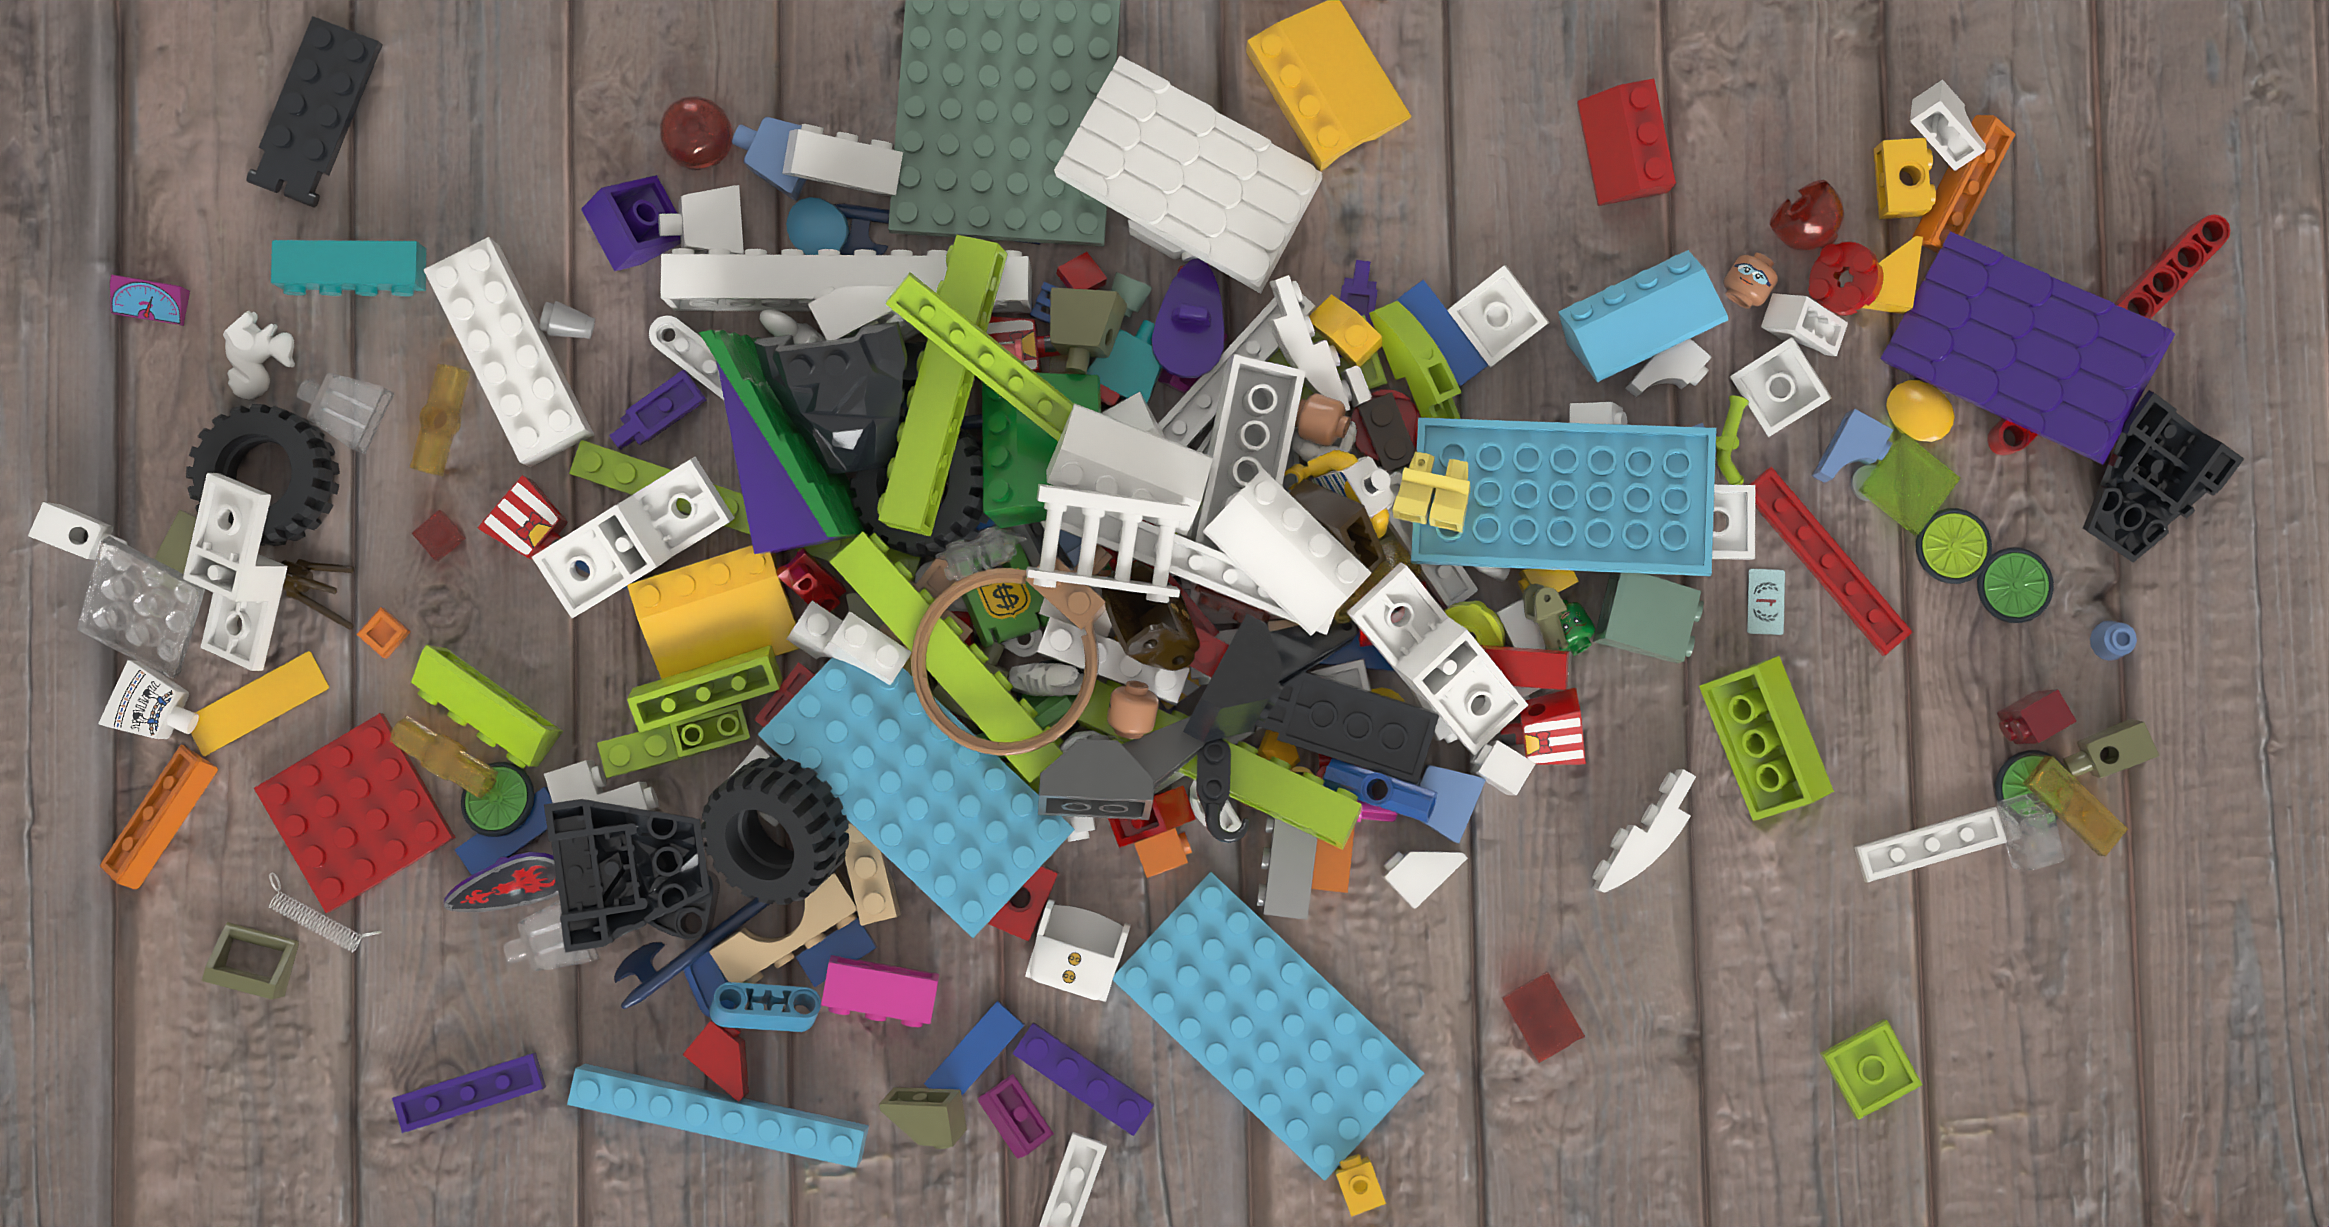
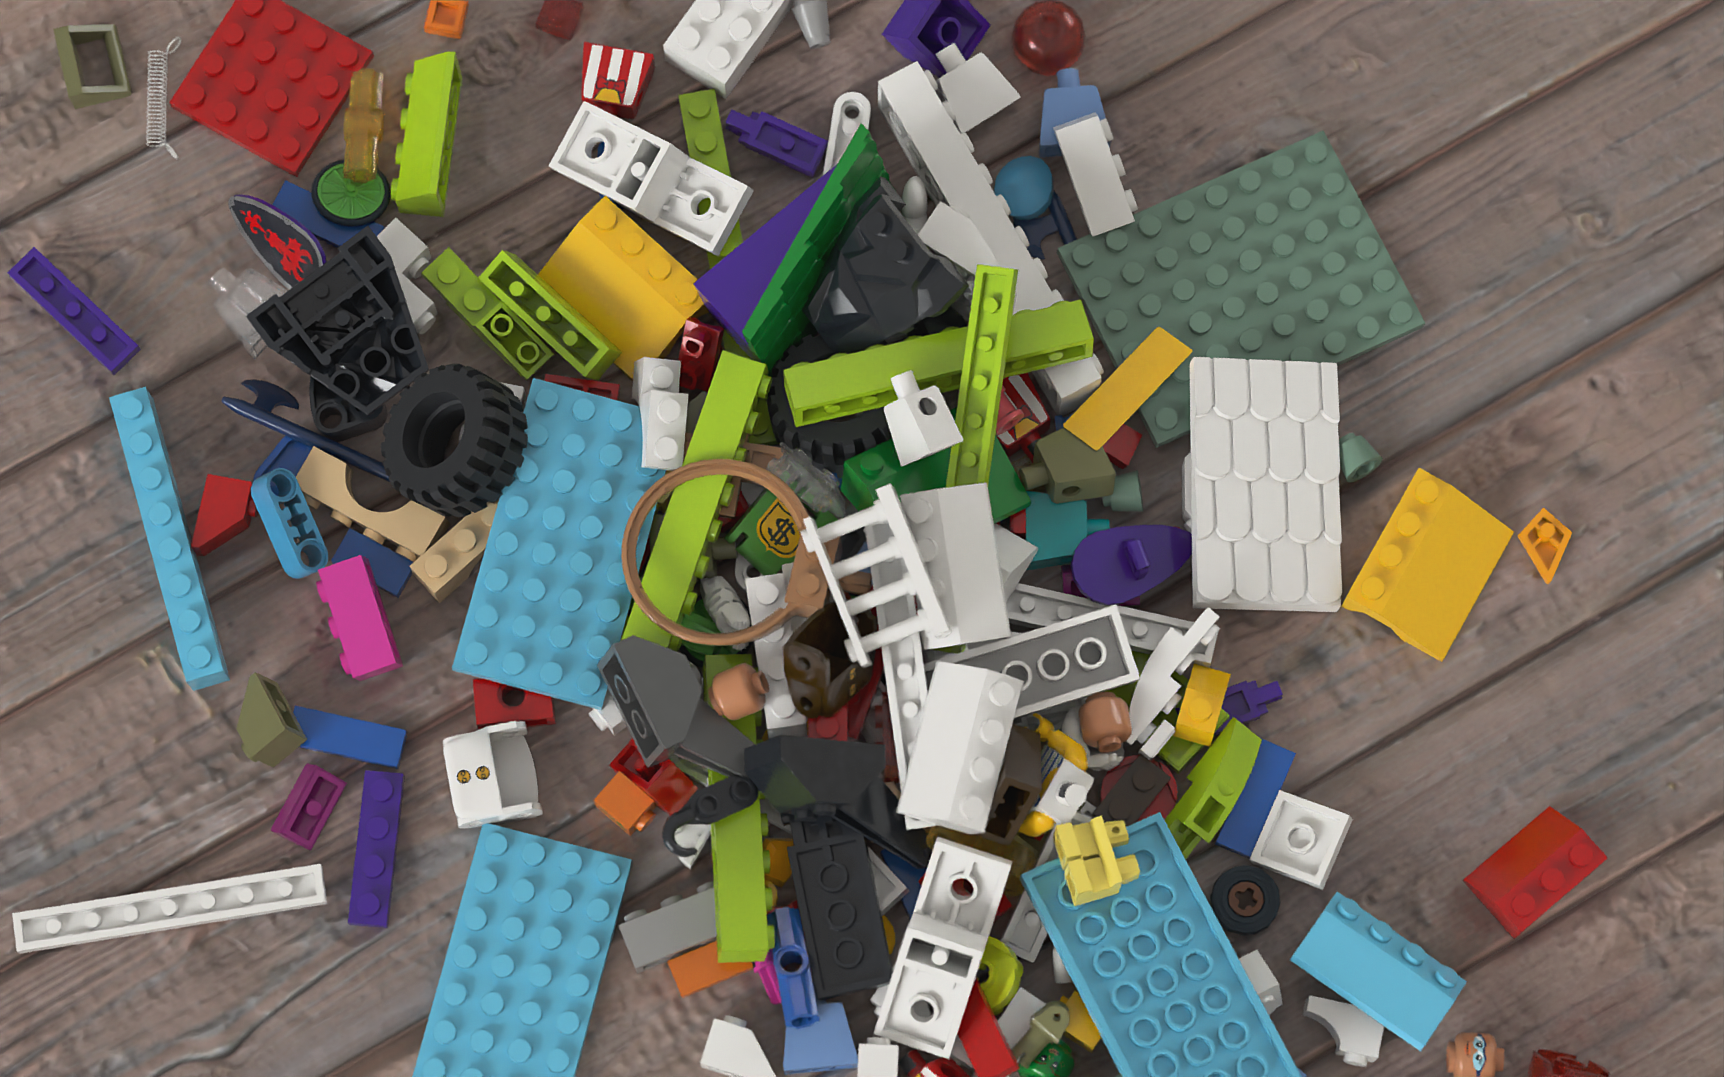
camera: 60 degrees right, 10 degrees down
(990, 429) = (919, 420): none -> white torso
(1046, 240) = (1127, 388): none -> yellow sticker
(1205, 85) = (1357, 457): none -> sand green hat
(1502, 384) = (1225, 904): none -> black bush

